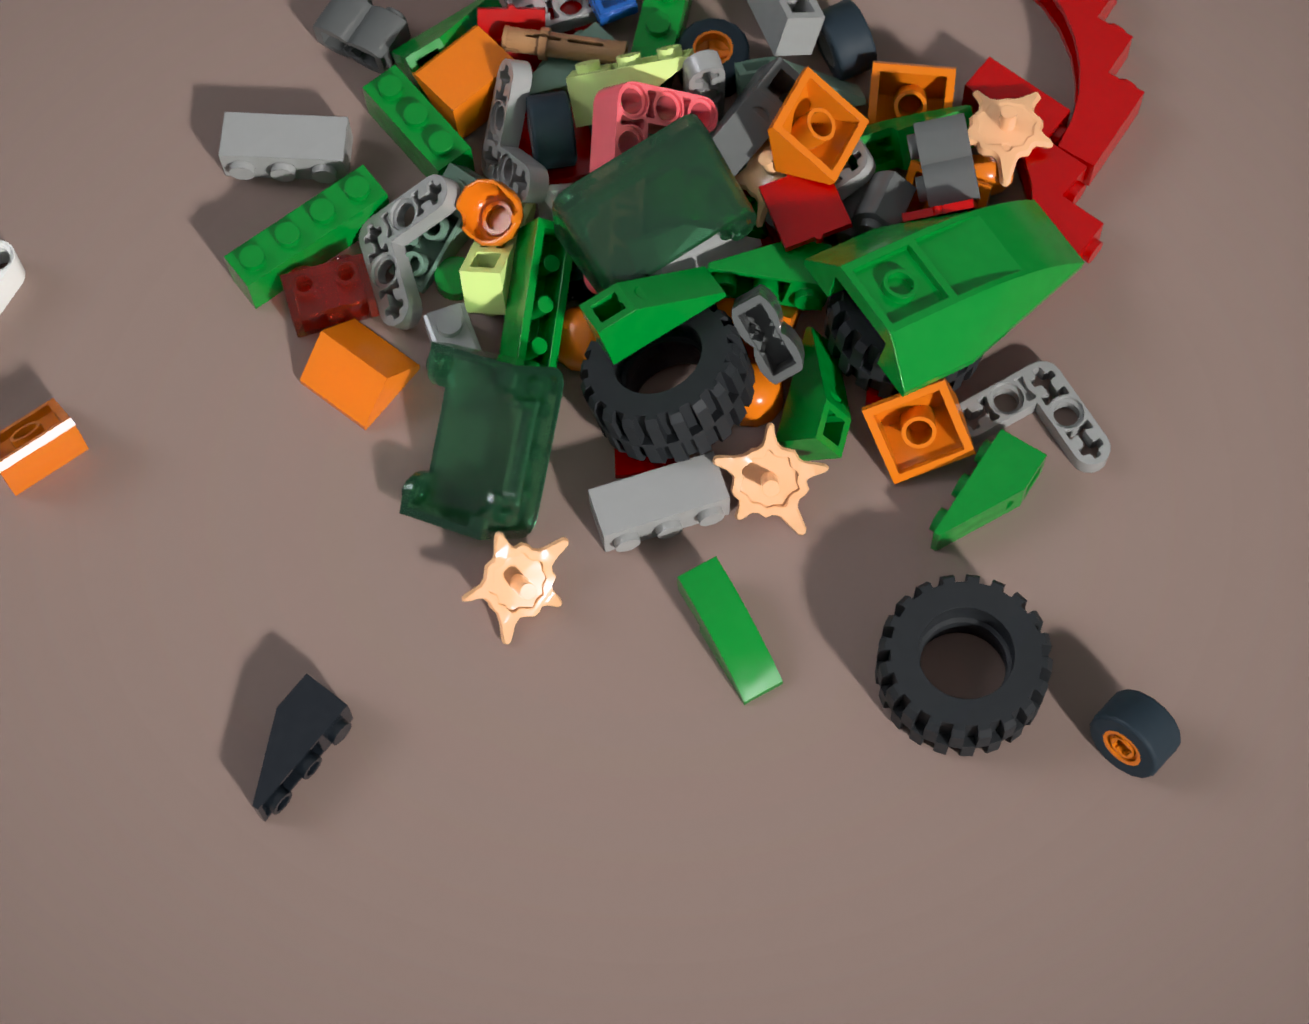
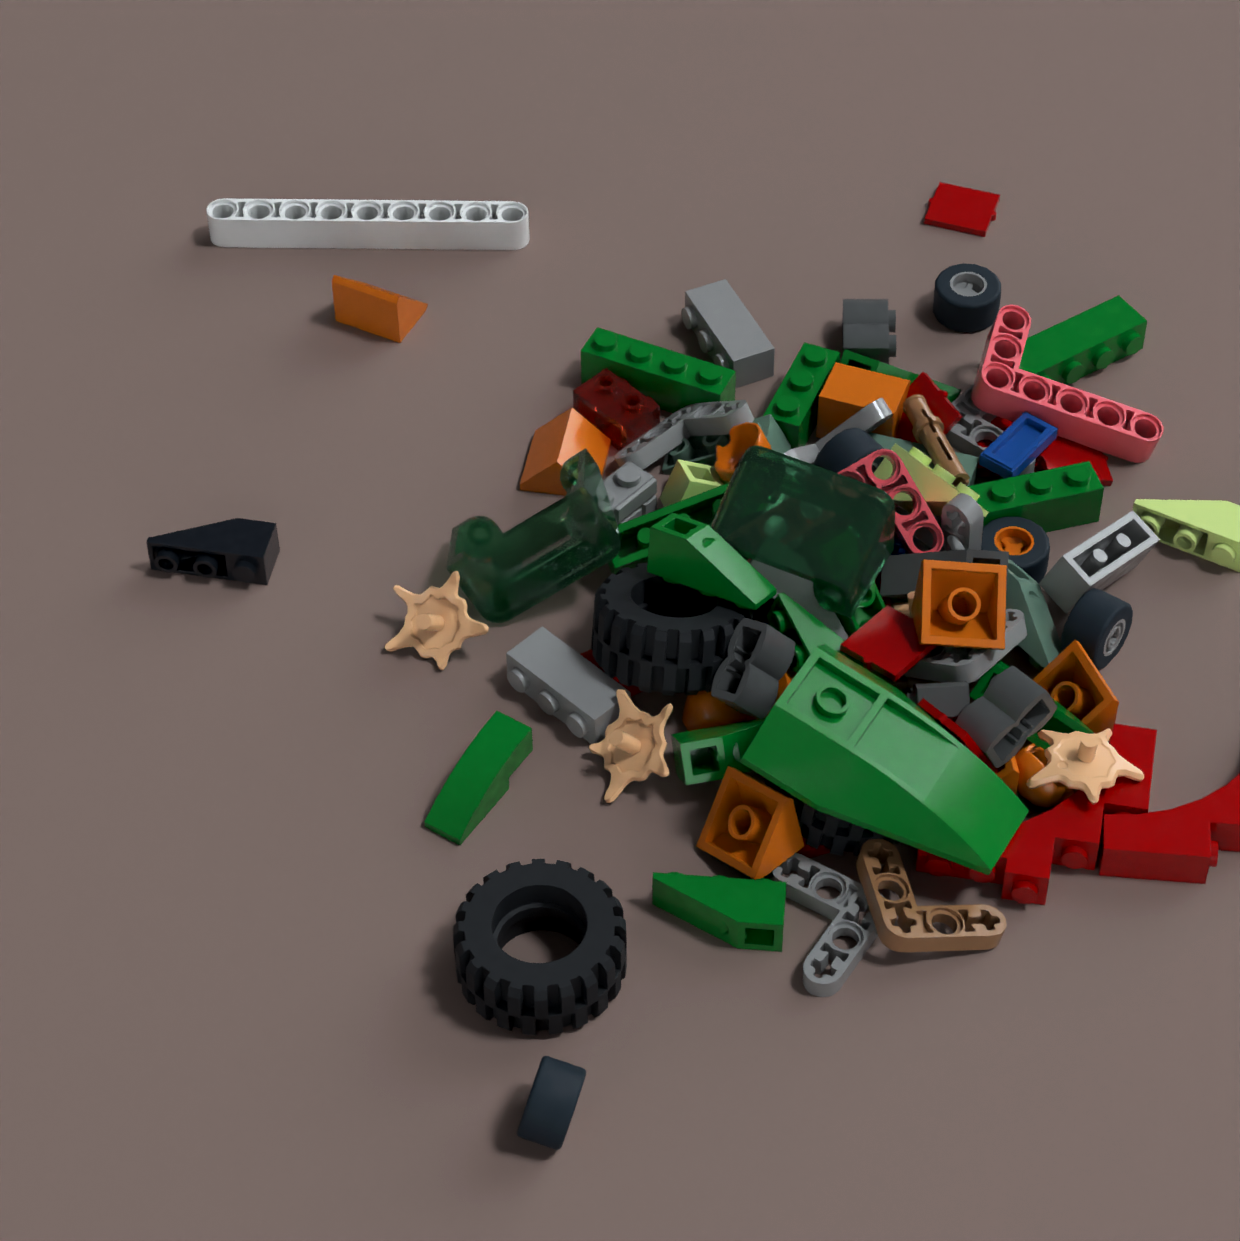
camera: 60 degrees right, 20 degrees down
(1083, 349) = (915, 928): none -> medium nougat beam

